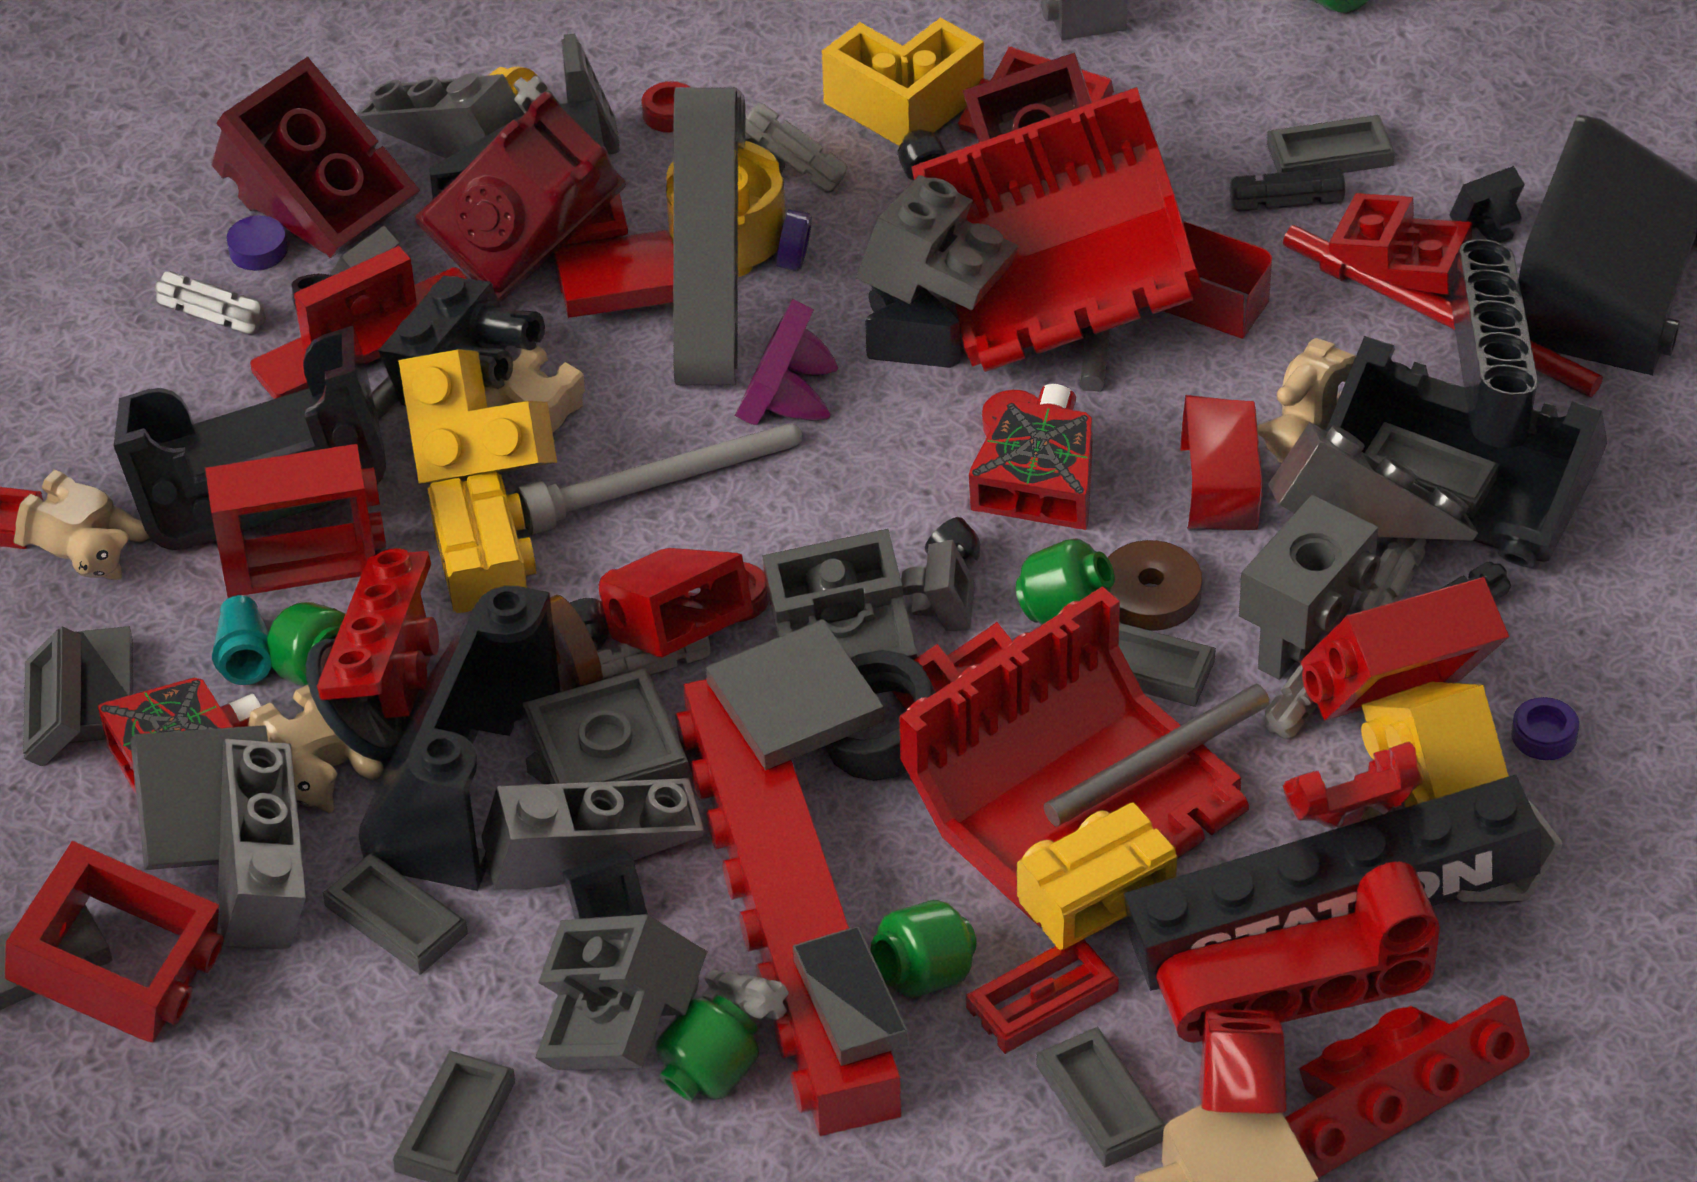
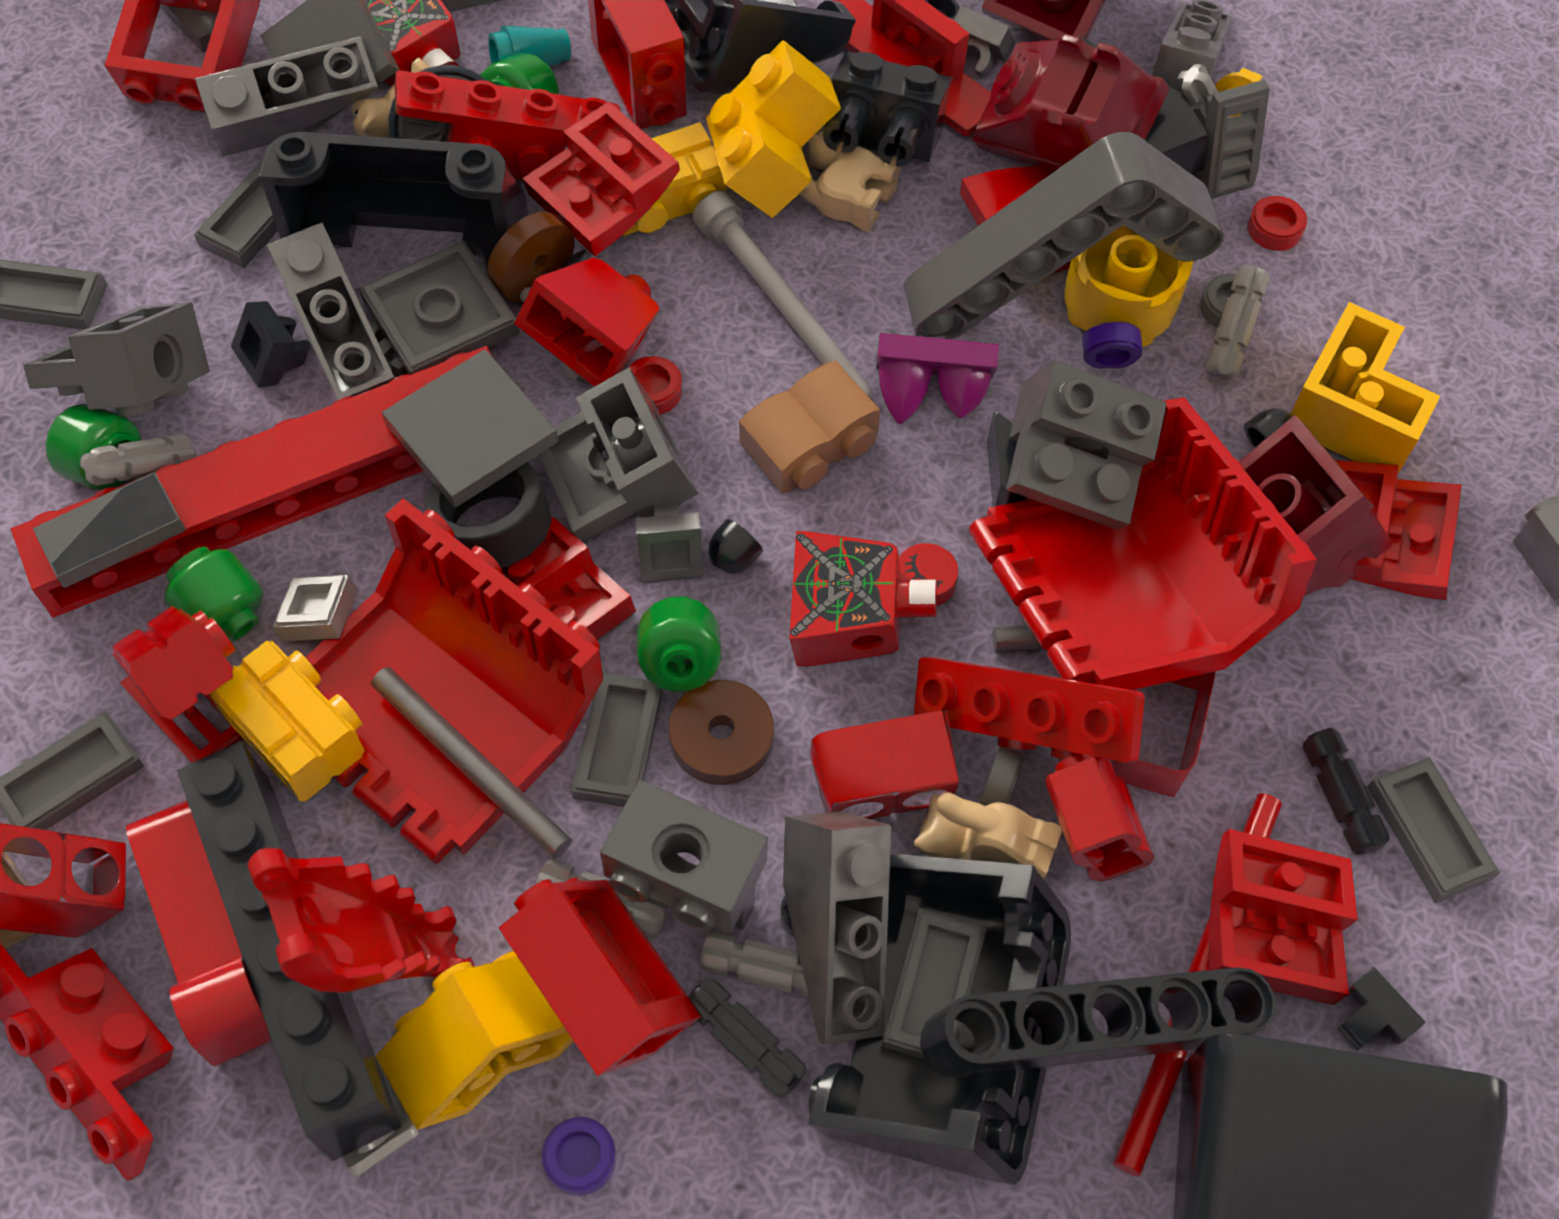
camera: 75 degrees right, 15 degrees up
(490, 545) = (602, 178): none -> red slope
(834, 467) = (809, 427): none -> medium nougat brick
(953, 871) = (315, 608): none -> light grey tile
(1030, 930) = (176, 659): none -> red brick
(1203, 331) = (1033, 709): none -> red bracket
(1246, 383) = (1002, 777): none -> dark grey tile
(1302, 310) = (1098, 817): none -> red brick

